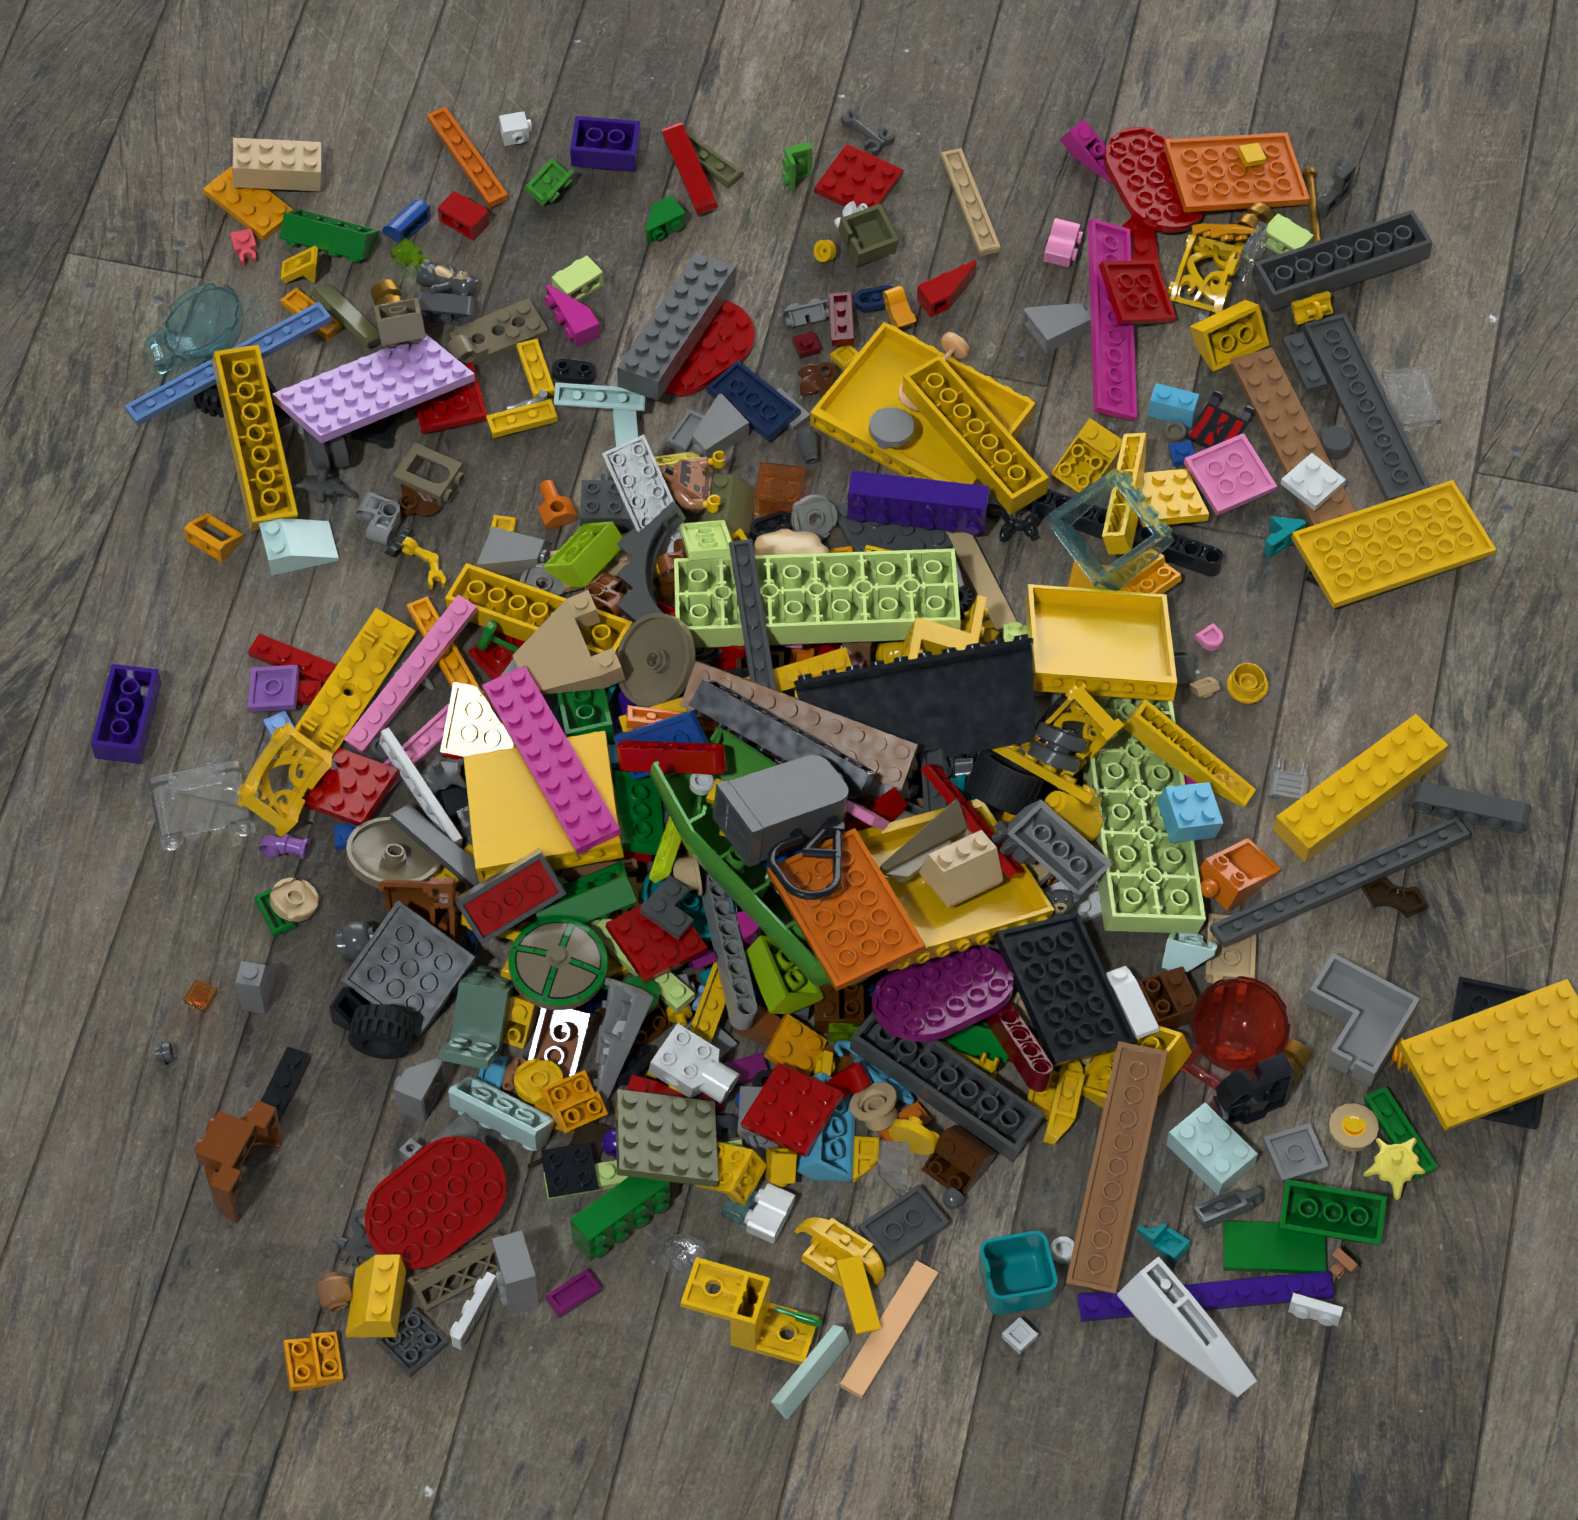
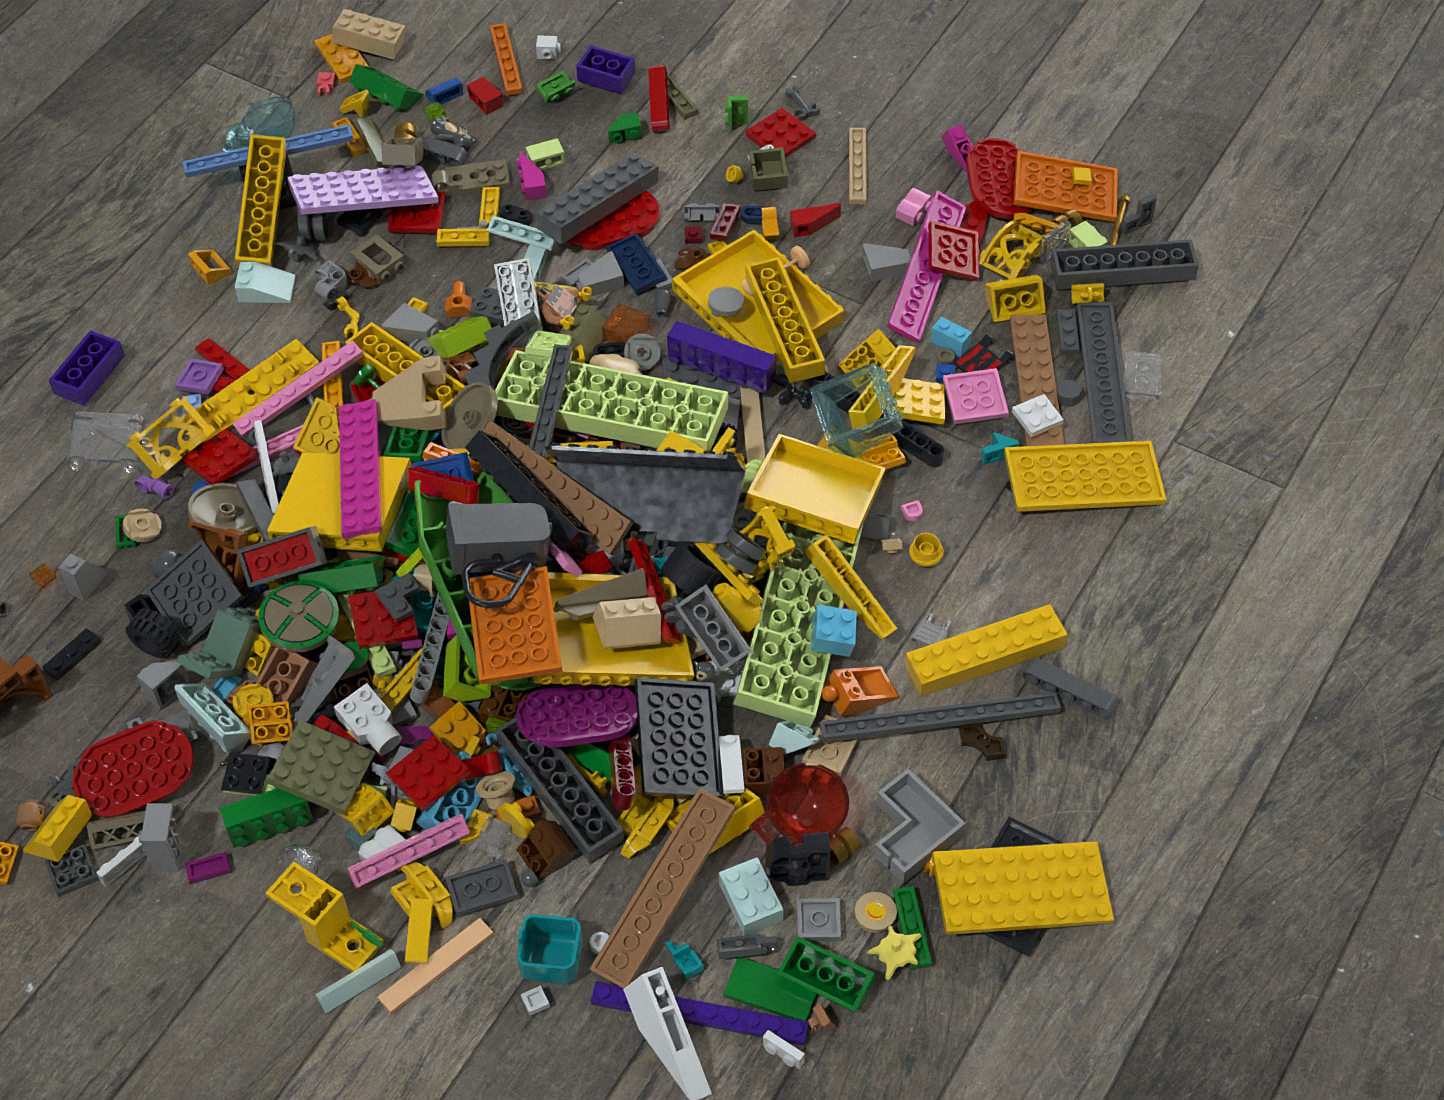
camera: 20 degrees right, 5 degrees down
(805, 1206) = (408, 850): none -> bright pink tile

